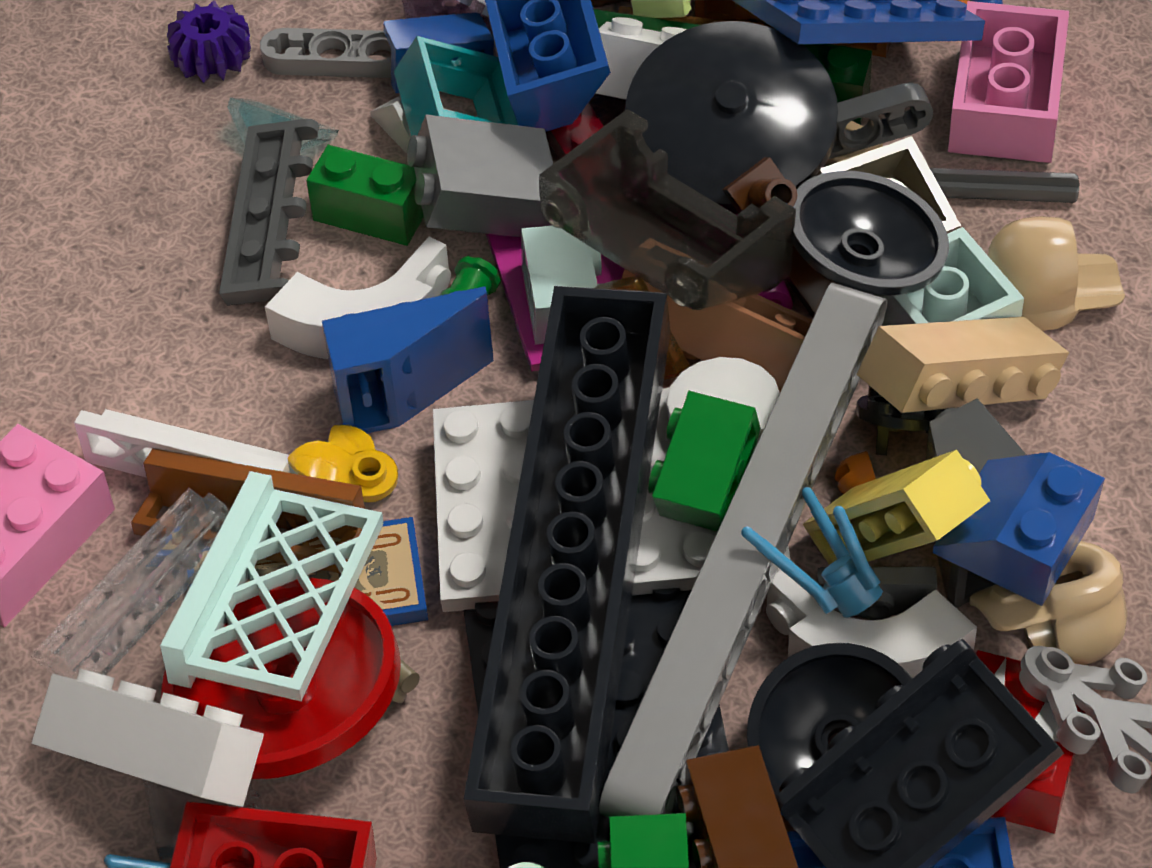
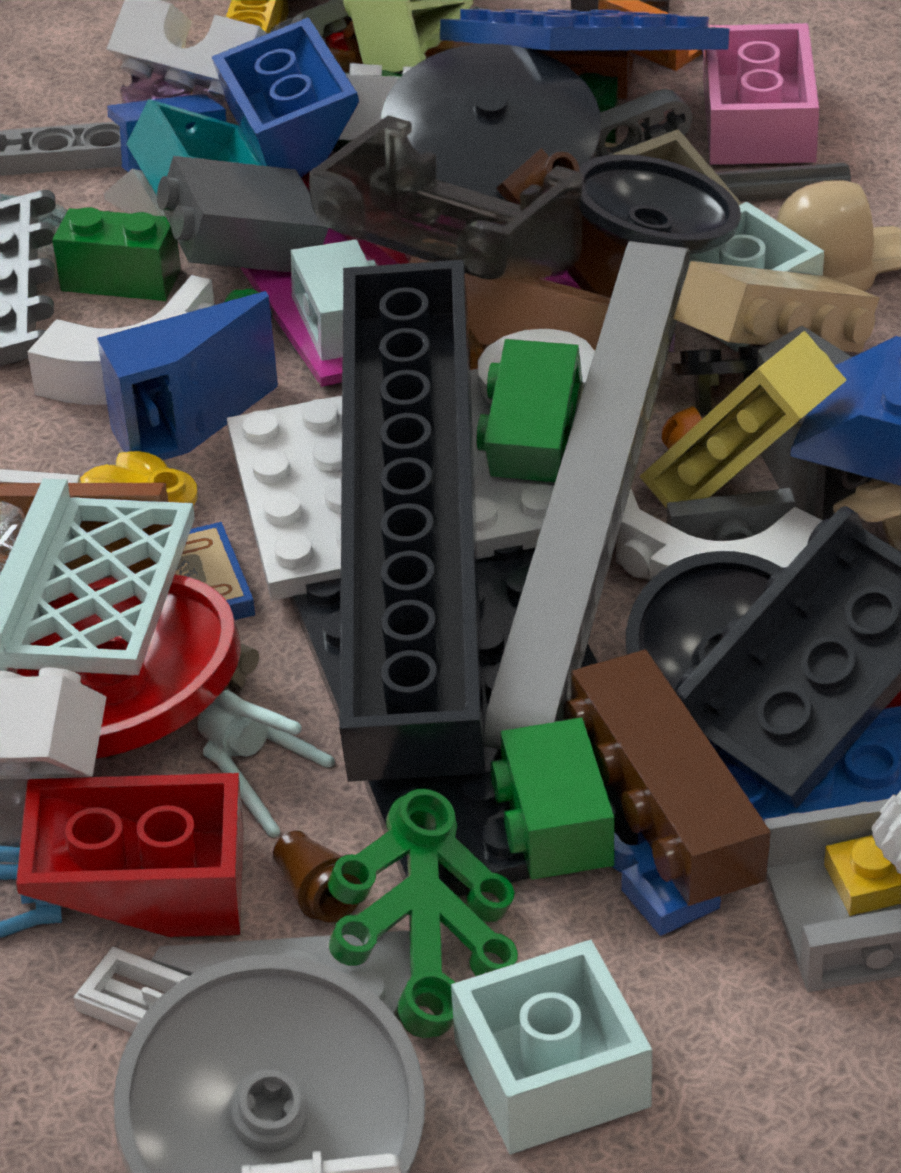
camera: 10 degrees left, 10 degrees down
(392, 753) = (241, 730): none -> light aqua plant
(849, 580) = (706, 502): dark azure plant -> none

